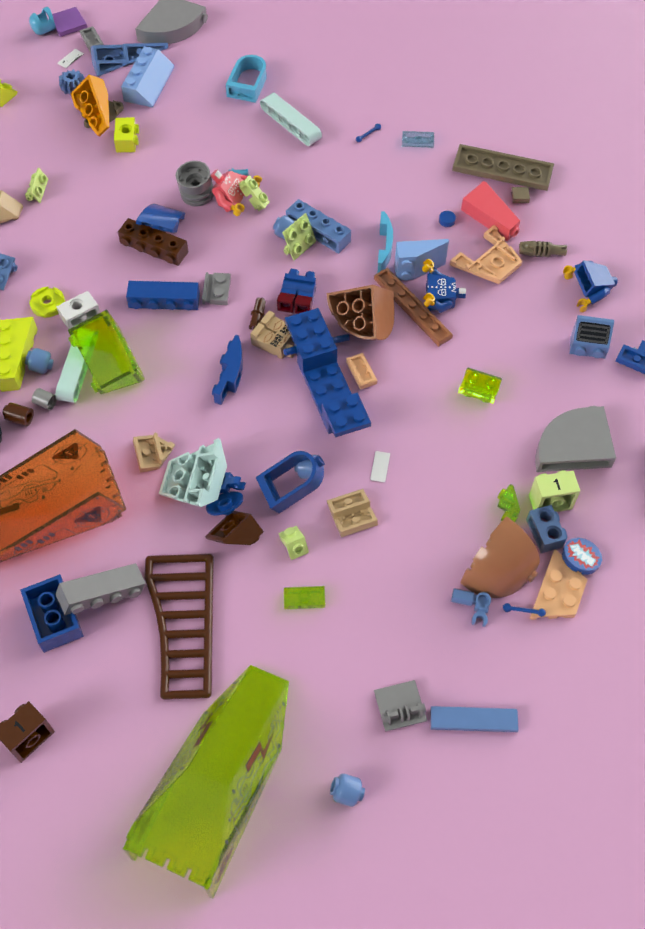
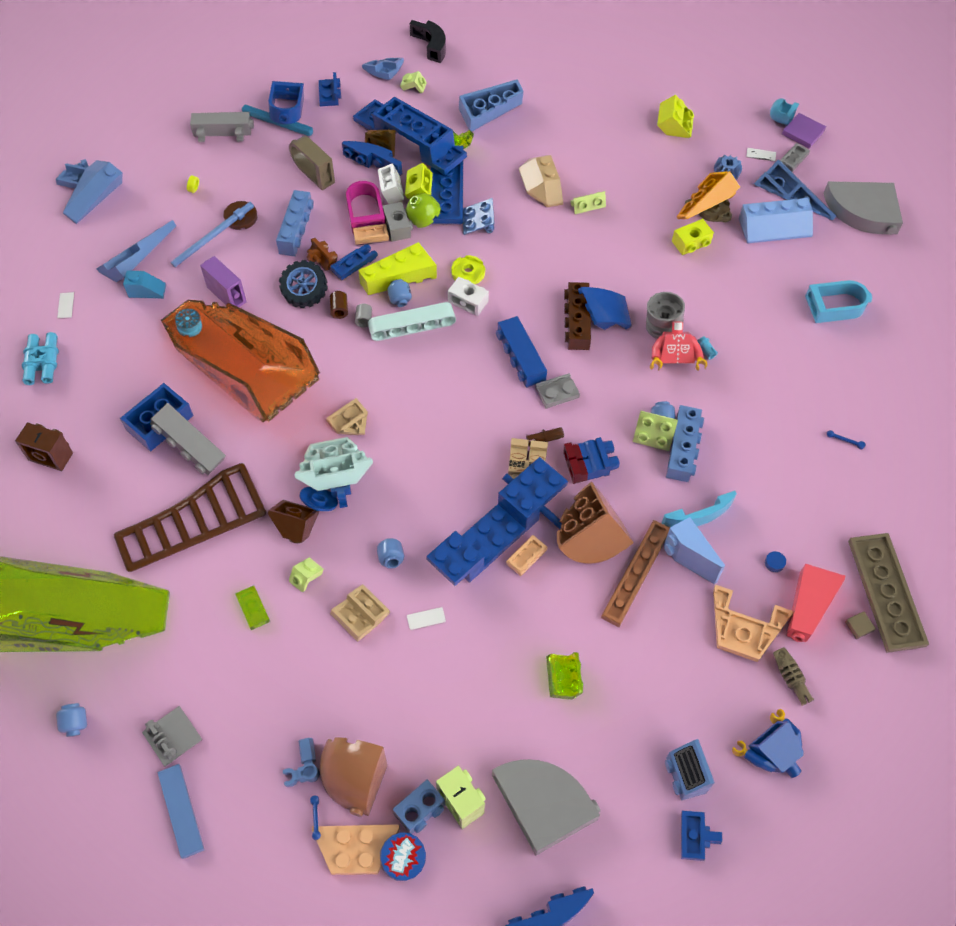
camera: 65 degrees right, 0 degrees up
(106, 353) = (428, 337): clear neon green windscreen -> none
(231, 371) = (474, 441): blue slope -> none
(259, 198) = (686, 369): yellowish green hinge -> none
(269, 490) = (350, 529): blue window -> none
(291, 119) = (810, 361): light aqua beam -> none
(417, 139) = (868, 492): clear light blue tile -> none
(440, 289) = (668, 590): blue torso -> none
(509, 503) = (437, 755): clear neon green slope -> none

